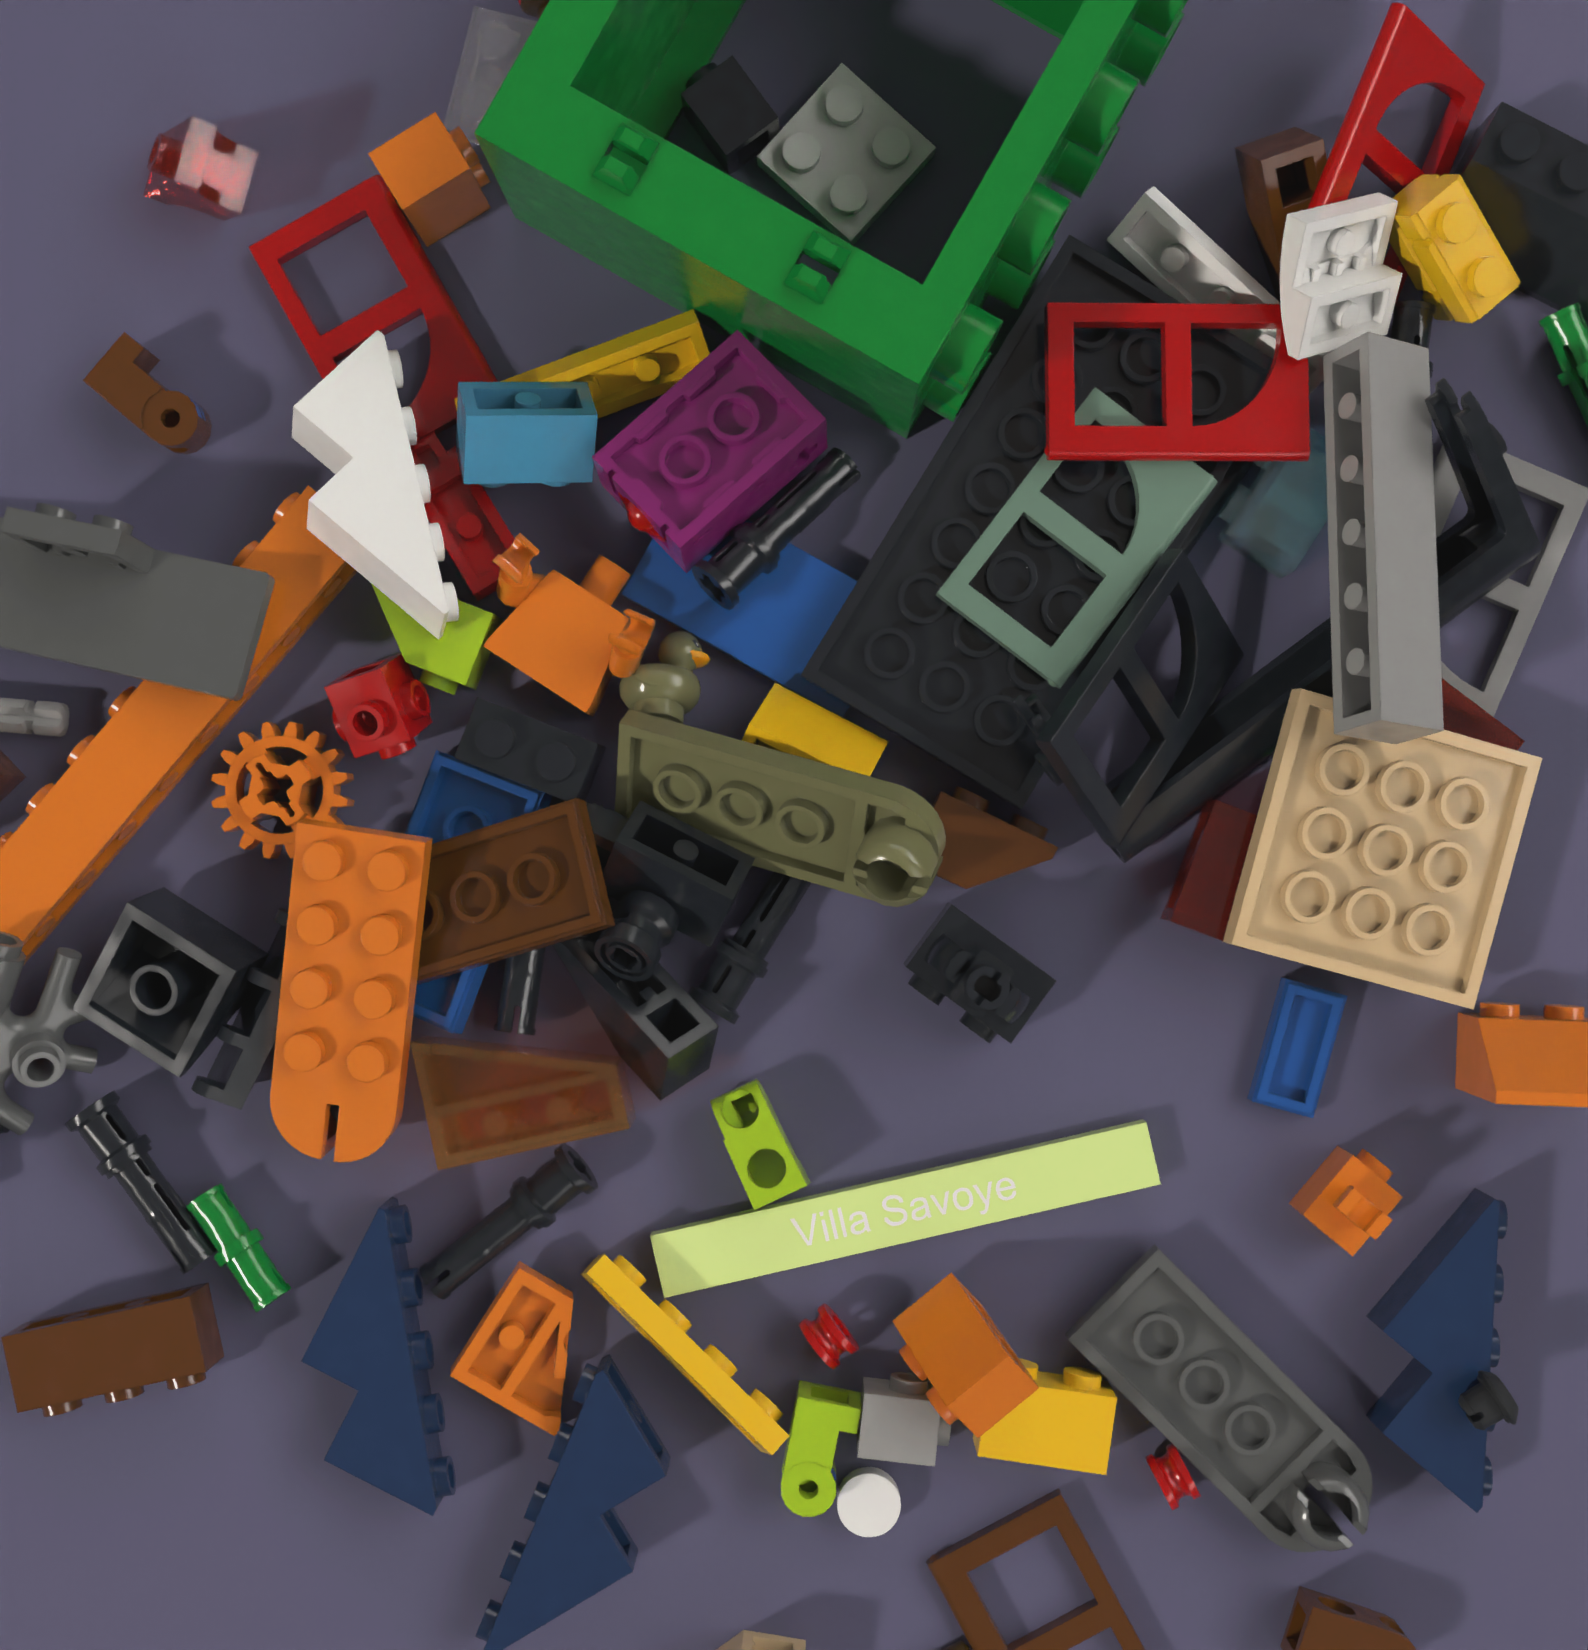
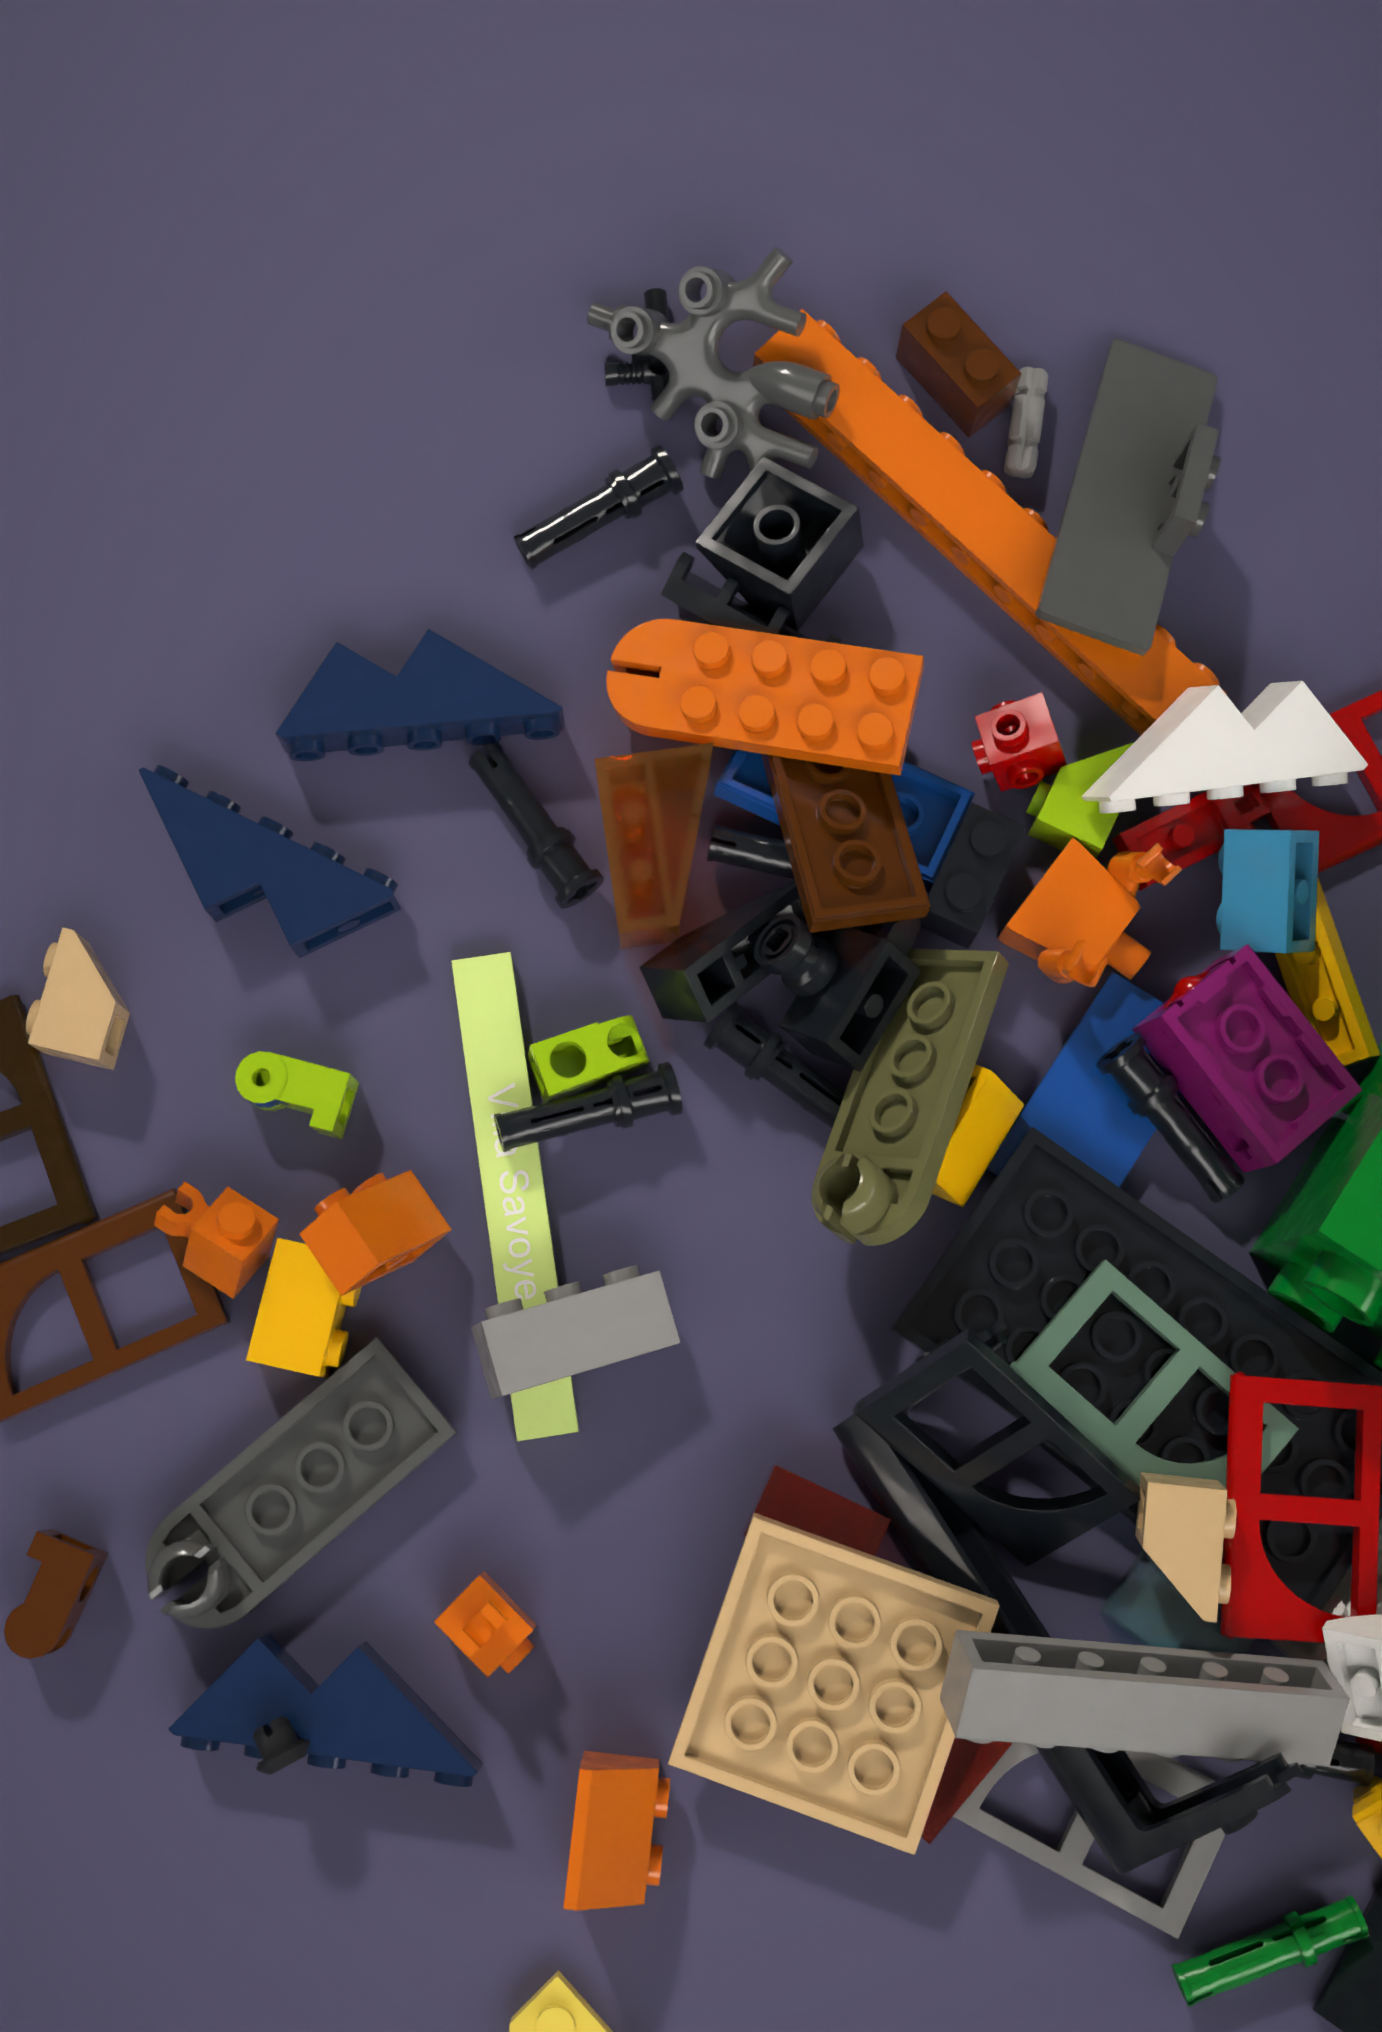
camera: 90 degrees right, 10 degrees down
(113, 1350) = (450, 472): reddish brown brick -> none
(161, 414) = (1294, 573): reddish brown leg -> none
(238, 1247) = (532, 586): green pin -> none
(265, 769) = (956, 630): orange gear -> none
(521, 1348) = (416, 829): orange wing -> none
(670, 686) = (1025, 1007): olive animal -> none
(706, 1370) = (381, 993): yellow plate -> none
(828, 1336) = (401, 1110): red bush -> none
(841, 1215) = (624, 1103): none -> black pin
(868, 1502) = (238, 1137): white tile -> none
(899, 1421) = (312, 1168): light grey brick -> none
(978, 974) = (734, 1276): black brick -> none
(982, 1510) = (224, 1239): none -> orange brick
(983, 845) = (855, 1288): reddish brown slope -> none
(1050, 1137) = (573, 1331): none -> light grey brick
(1172, 1476) = (232, 1430): red bush -> none
(1214, 504) = (1183, 1532): none -> tan slope
(1297, 1047) = (638, 1590): blue tile -> none

